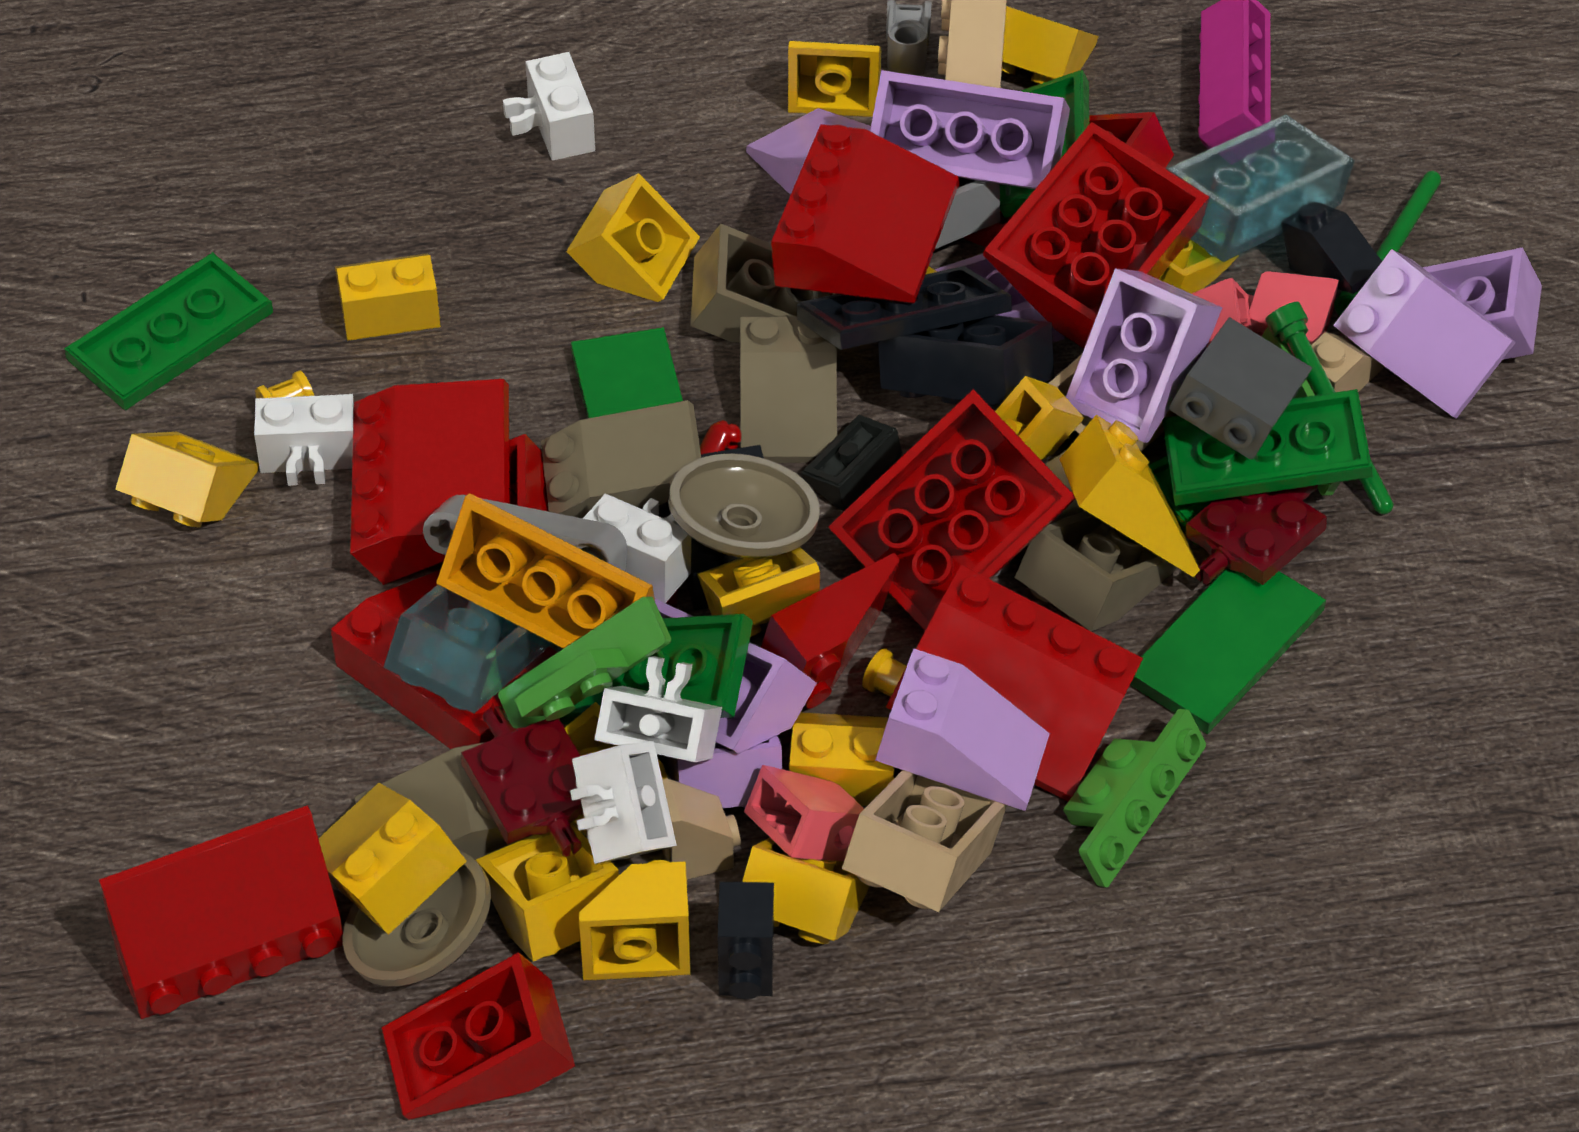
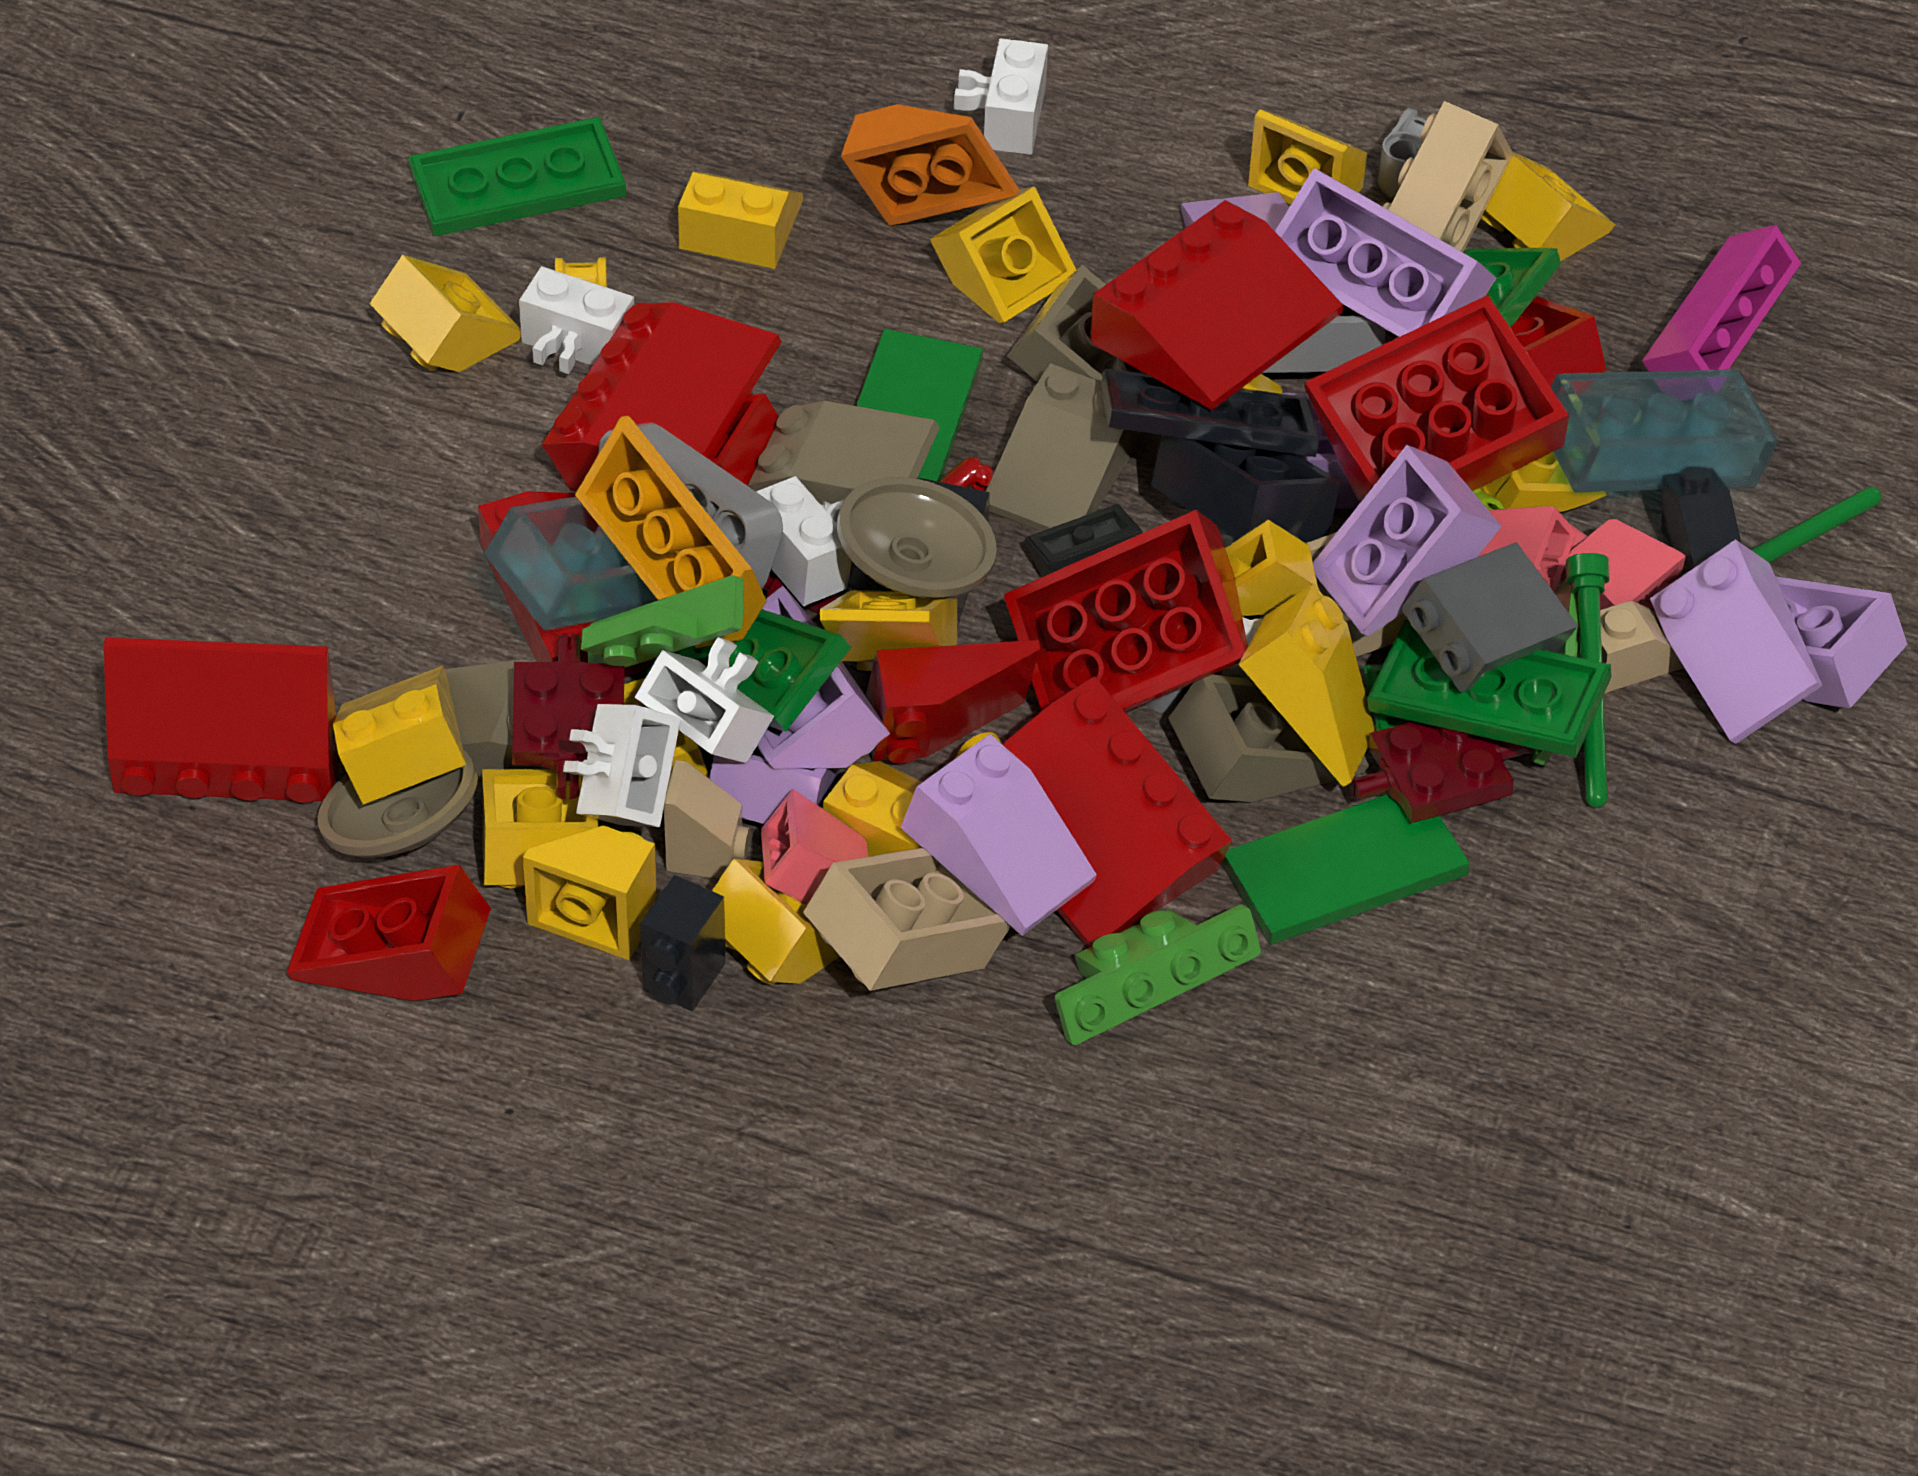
camera: 25 degrees right, 0 degrees up
(535, 185) = (923, 163): none -> orange slope

